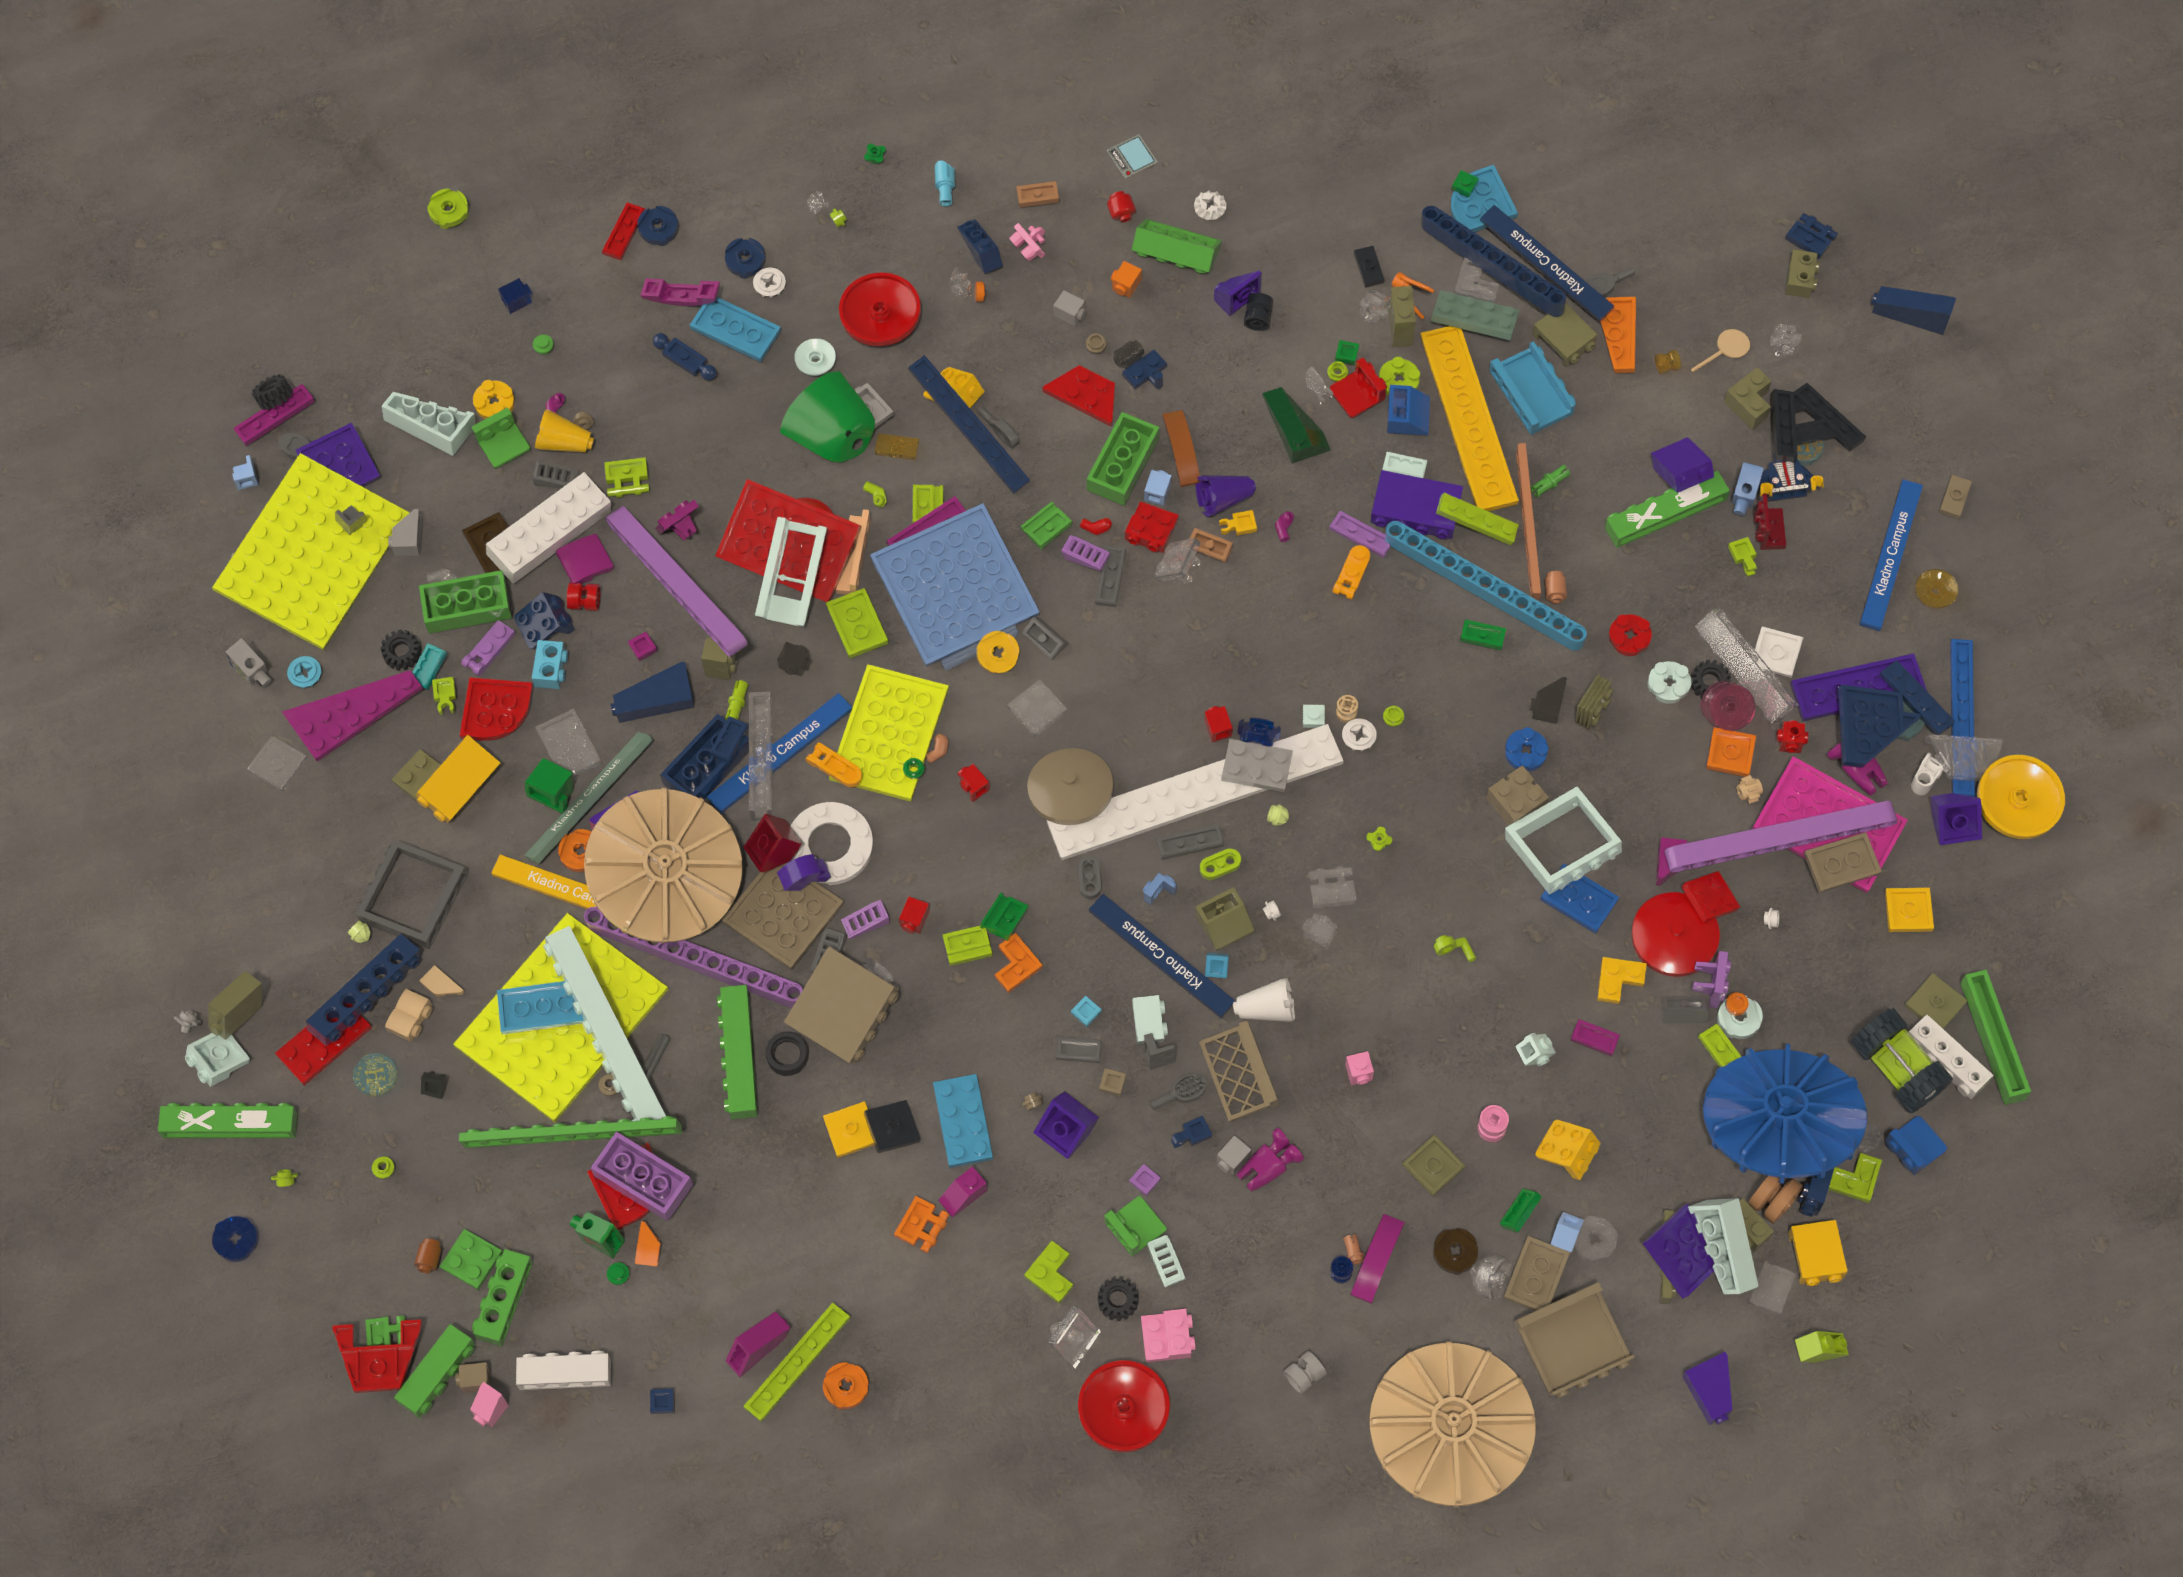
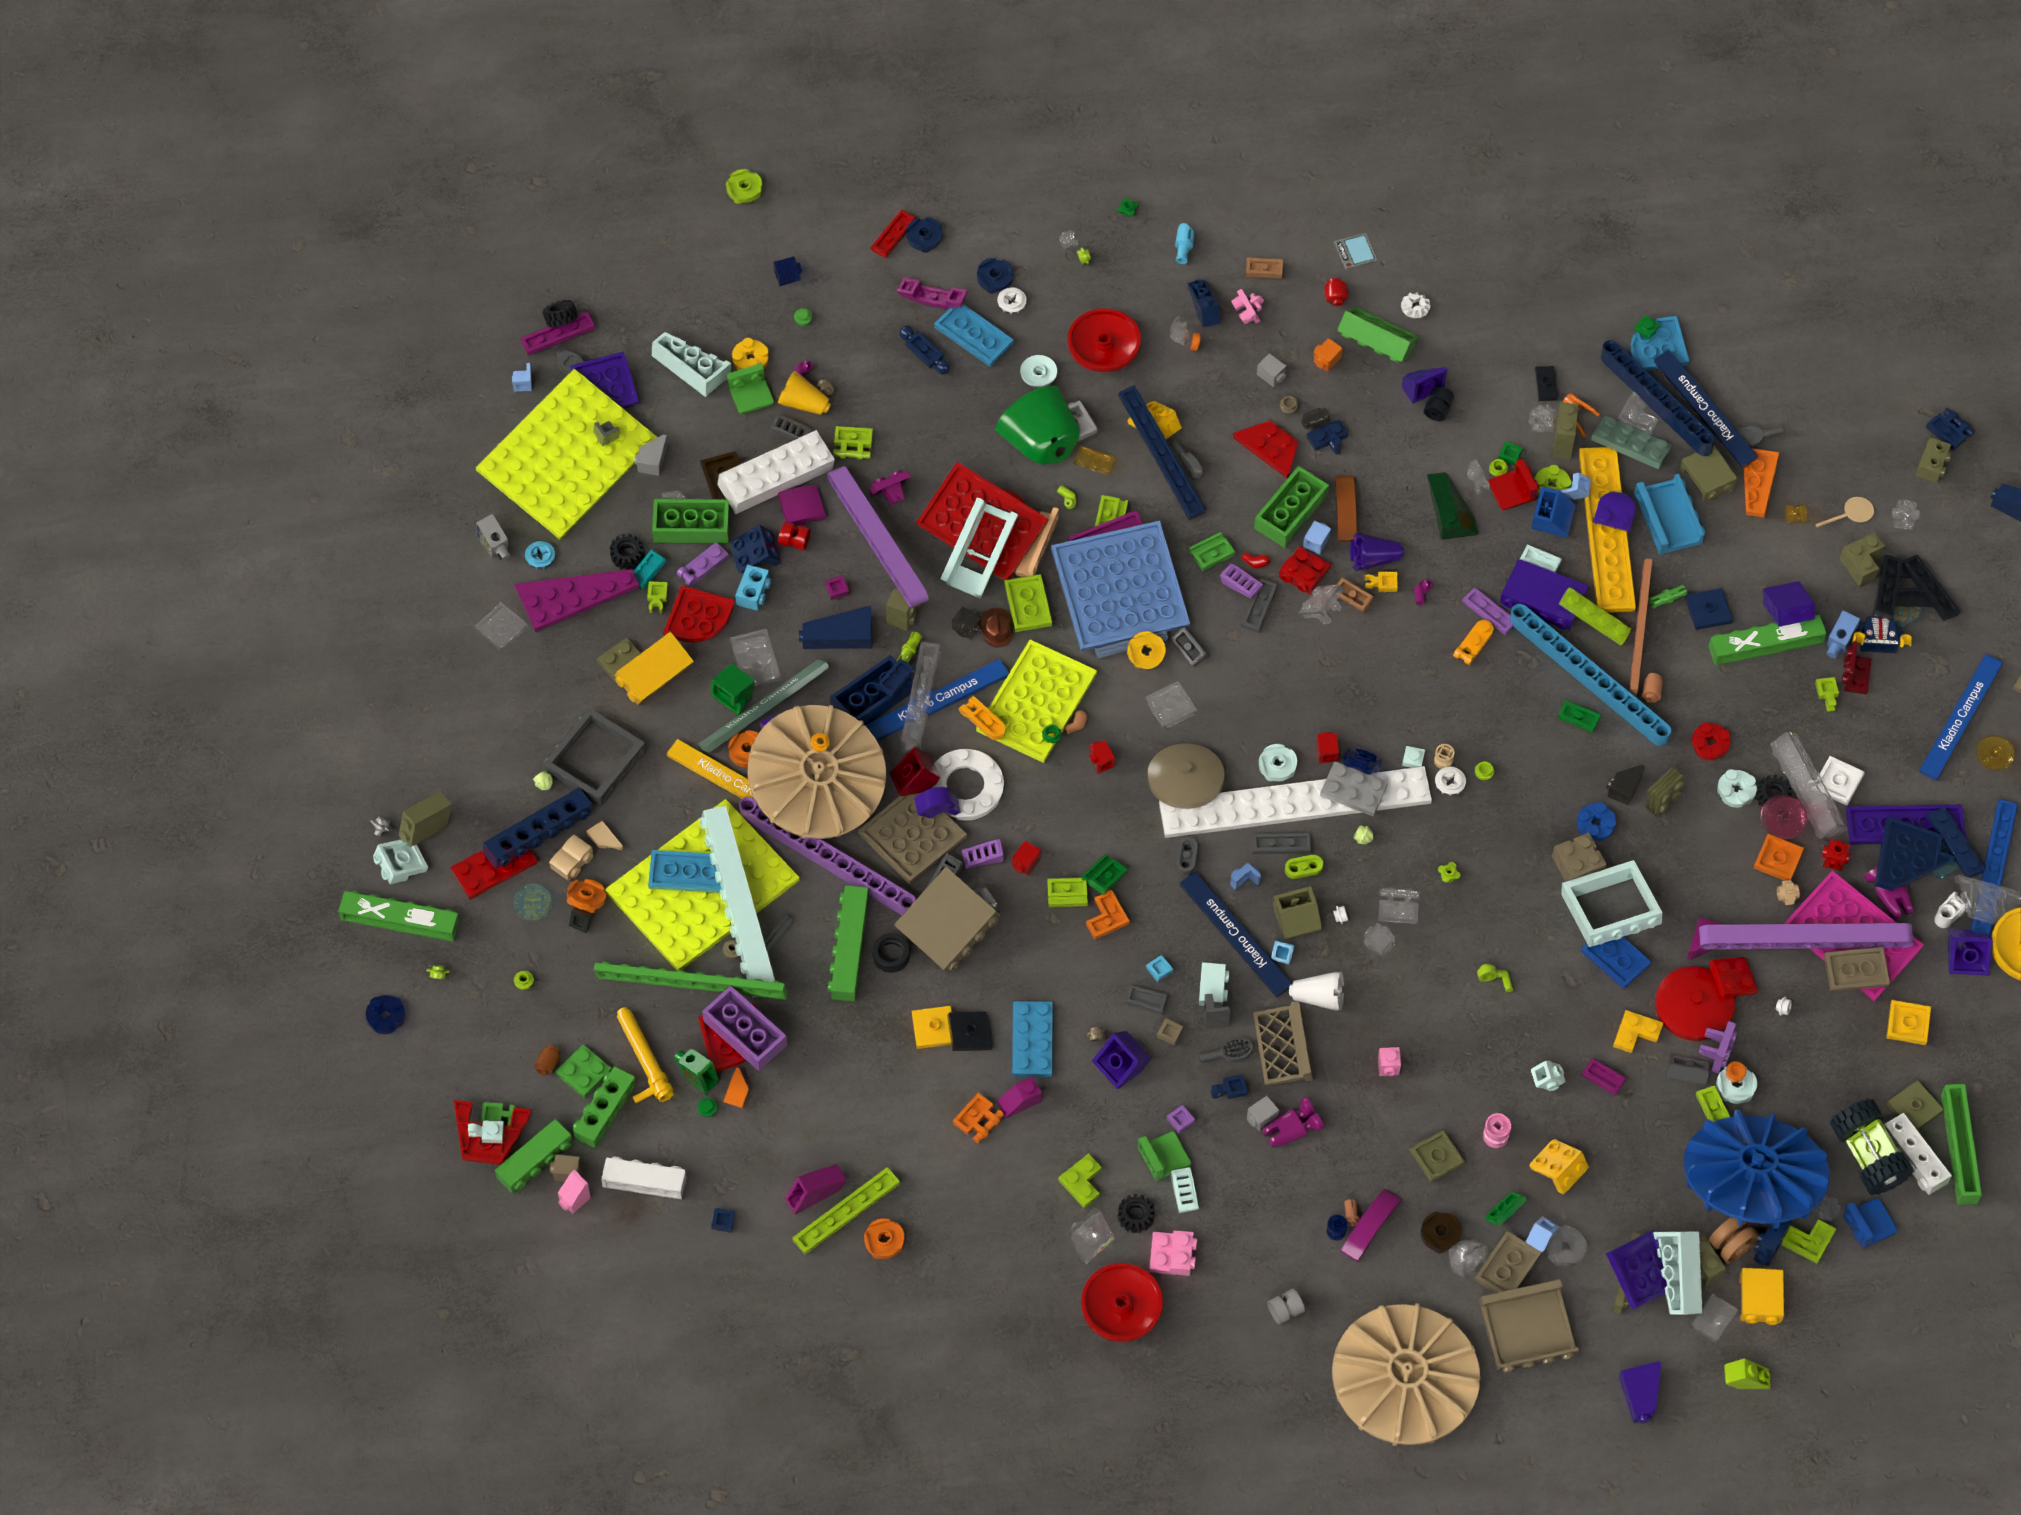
camera: 10 degrees right, 5 degrees down
(379, 1355) = (490, 1131): none -> light aqua plate
(434, 1065) = (577, 895): none -> orange plate
(555, 1252) = (656, 1078): none -> yellow cylinder
(660, 840) = (819, 747): none -> light orange plate
(828, 656) = (996, 627): none -> copper piece
(1171, 740) = (1284, 755): none -> light aqua plate
(1429, 377) = (1579, 487): none -> light blue panel
(1475, 397) = (1615, 511): none -> dark purple slope
(1596, 486) = (1708, 609): none -> dark blue plate

